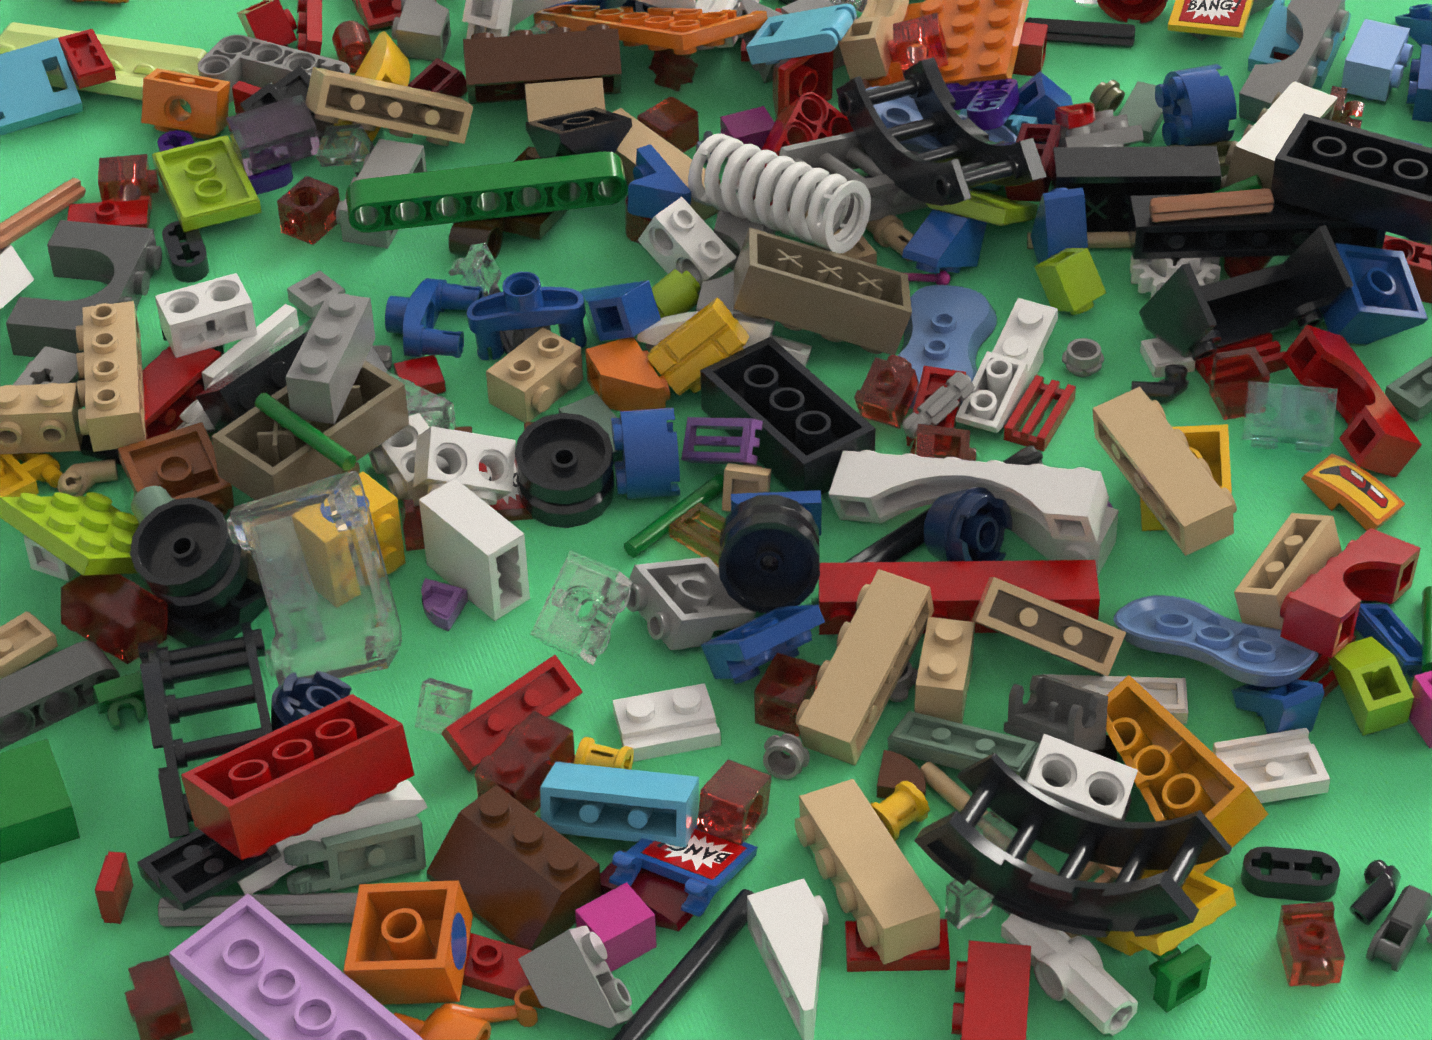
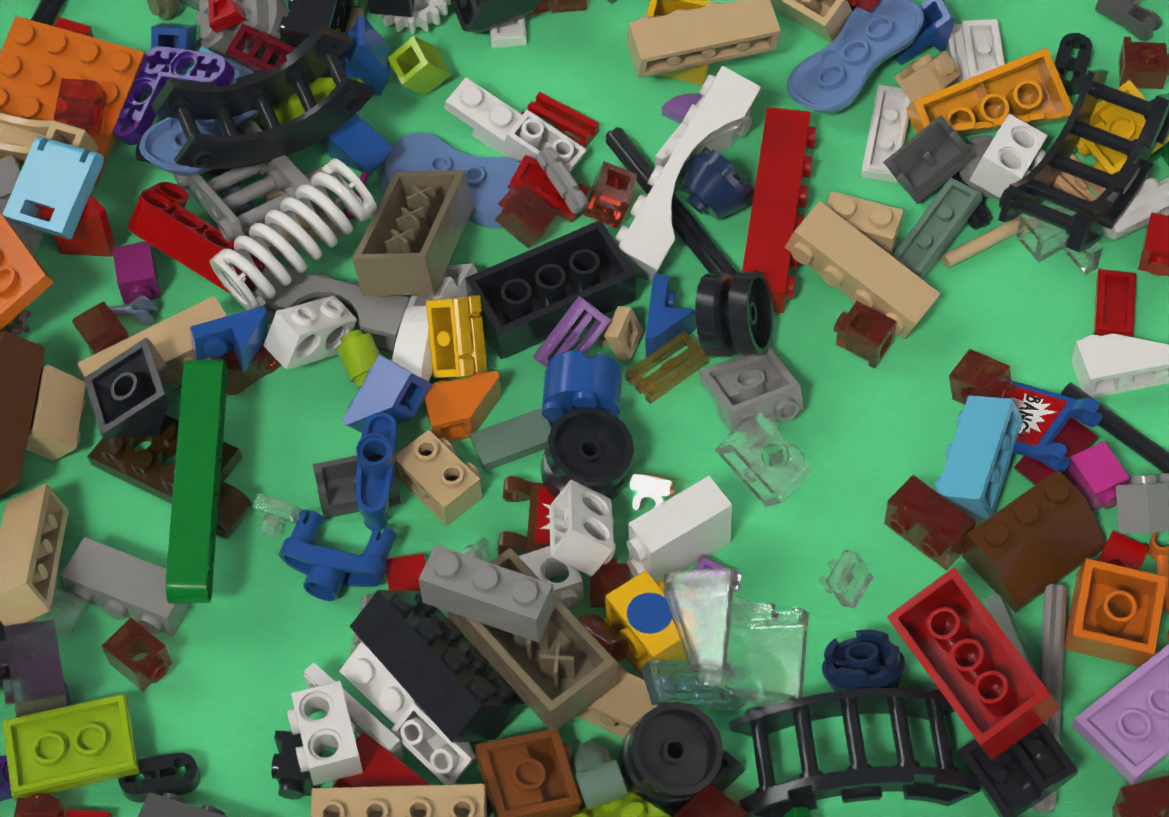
camera: 80 degrees left, 15 degrees up
(305, 432) = (569, 628): green bar -> none
(311, 292) = (269, 655): light grey plate -> none
(486, 727) = (859, 529): red plate -> none
(546, 536) = (651, 486): none -> tile
(599, 755) = (931, 466): yellow bush -> none
(660, 526) = (643, 404): green bar -> none
(667, 722) = (873, 426): white plate -> none
(752, 644) = (824, 333): blue plate -> none
(783, 765) = (926, 347): light grey plate -> none
(868, 871) = (1059, 305): tan brick -> none
(896, 769) = (953, 278): reddish brown tile -> none
(902, 808) = (995, 282): yellow bush -> none
(1048, 626) = (841, 147): tan brick -> none
(1083, 357) = (502, 74): light grey plate -> none
(1167, 388) = (551, 37): black arm -> none
(1199, 707) = (927, 75): none -> tan brick
(1383, 883) = (1094, 15): black arm -> none

